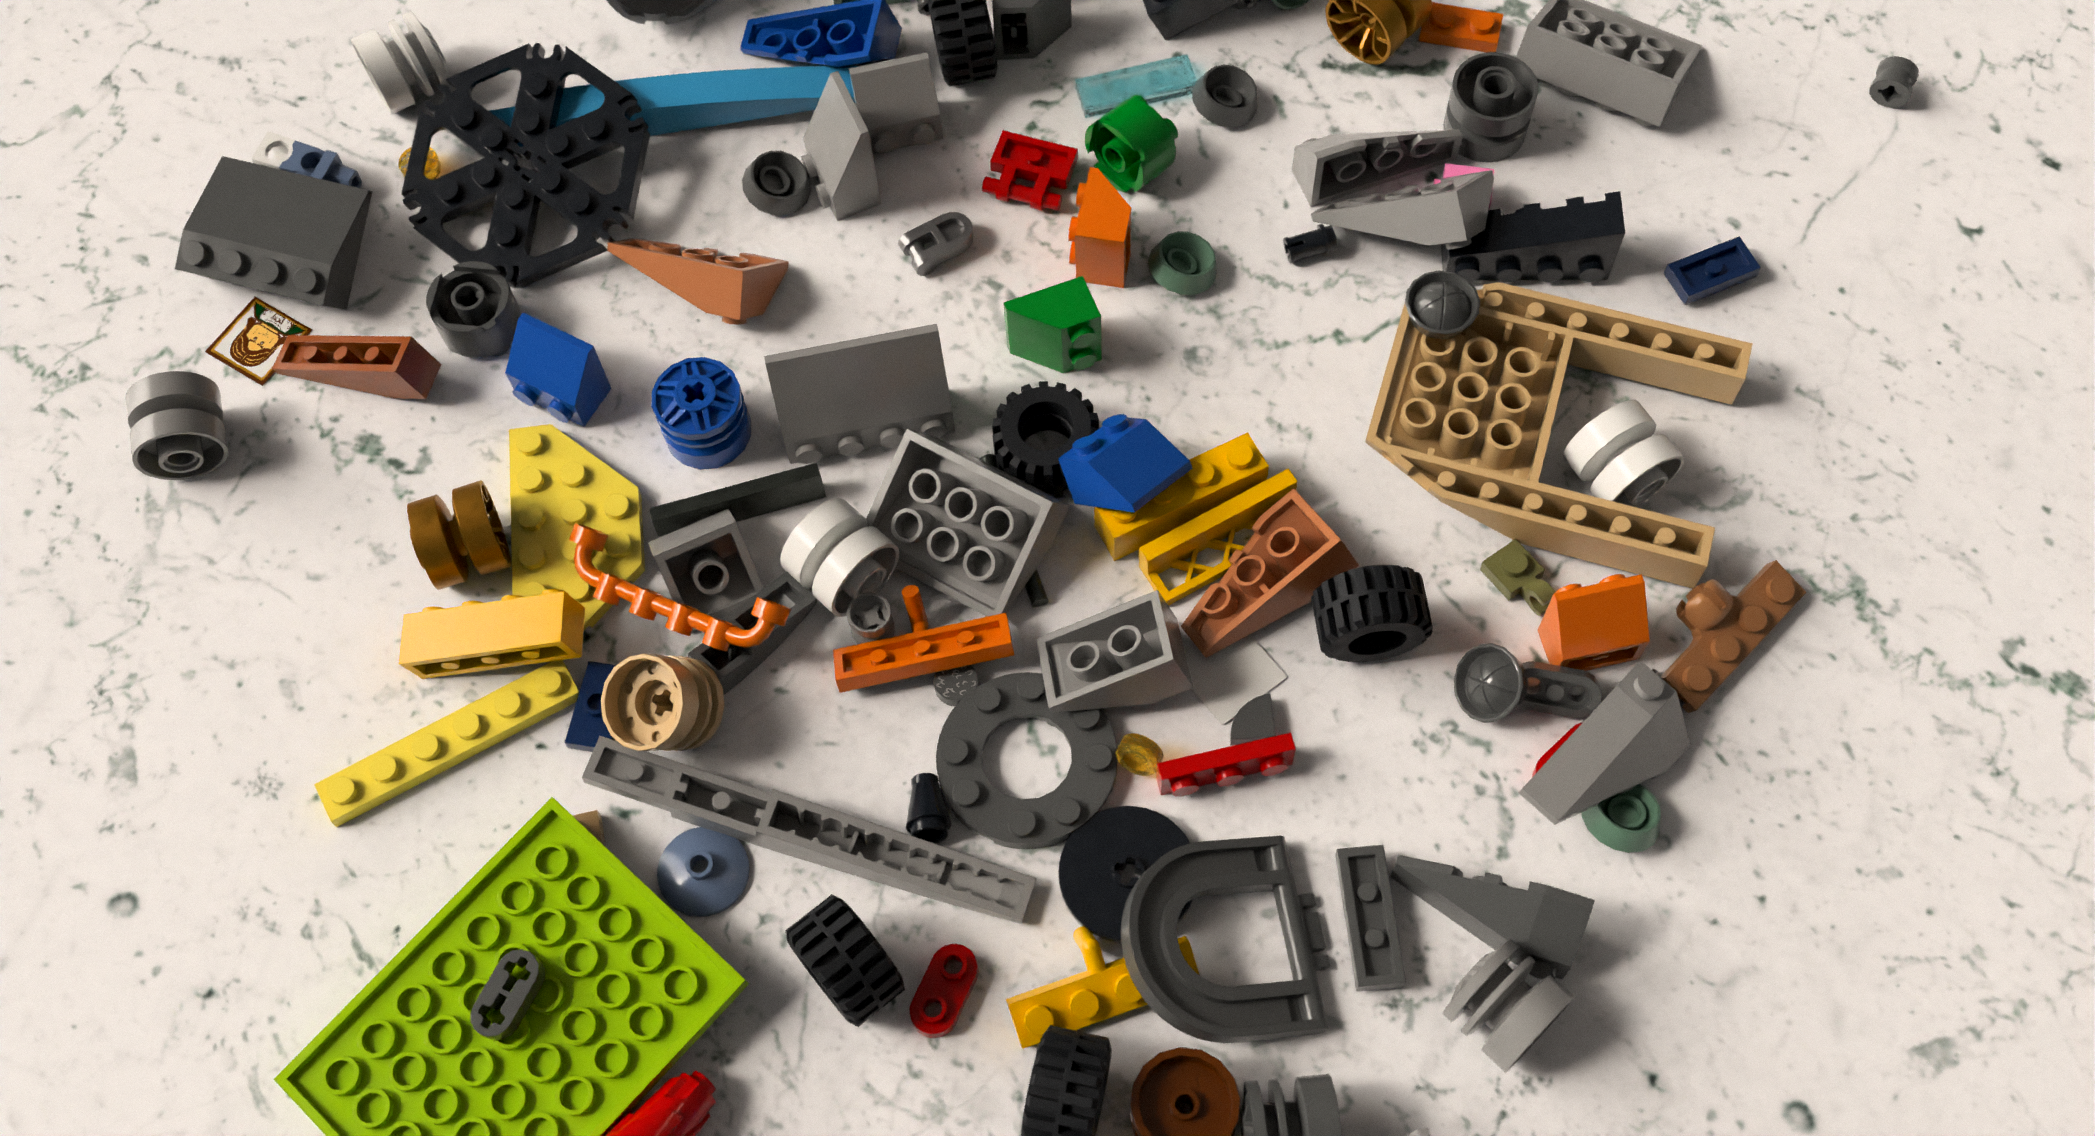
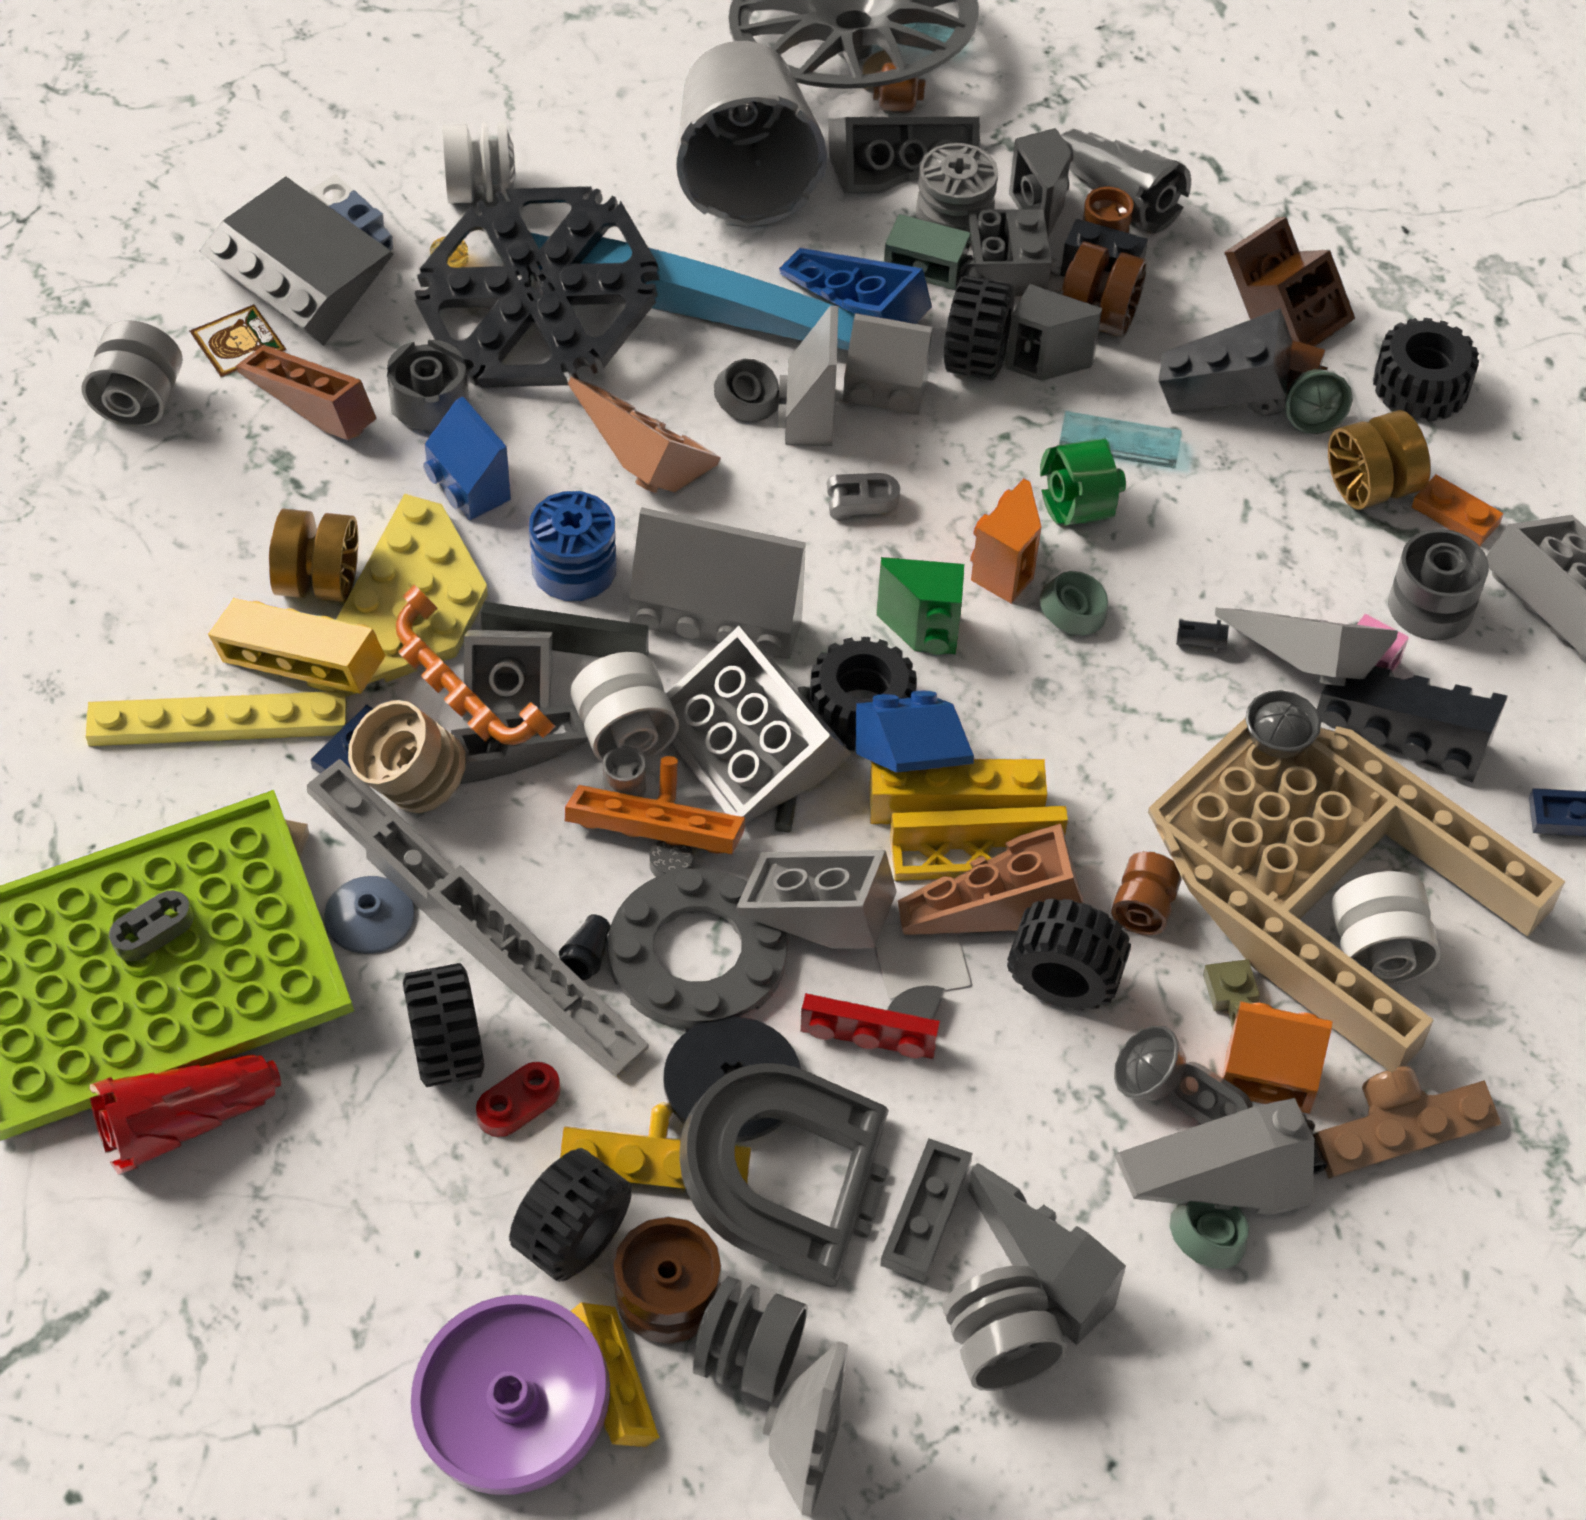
camera: 20 degrees right, 10 degrees down
(1031, 160) = (985, 461): red plate -> none
(1139, 754) = (794, 981): clear yellow tile -> none
(1226, 96) = (1197, 479): dark grey hat -> none
(1358, 161) = (1289, 583): light grey wedge -> none
(1399, 518) = (1146, 893): none -> dark orange wheel

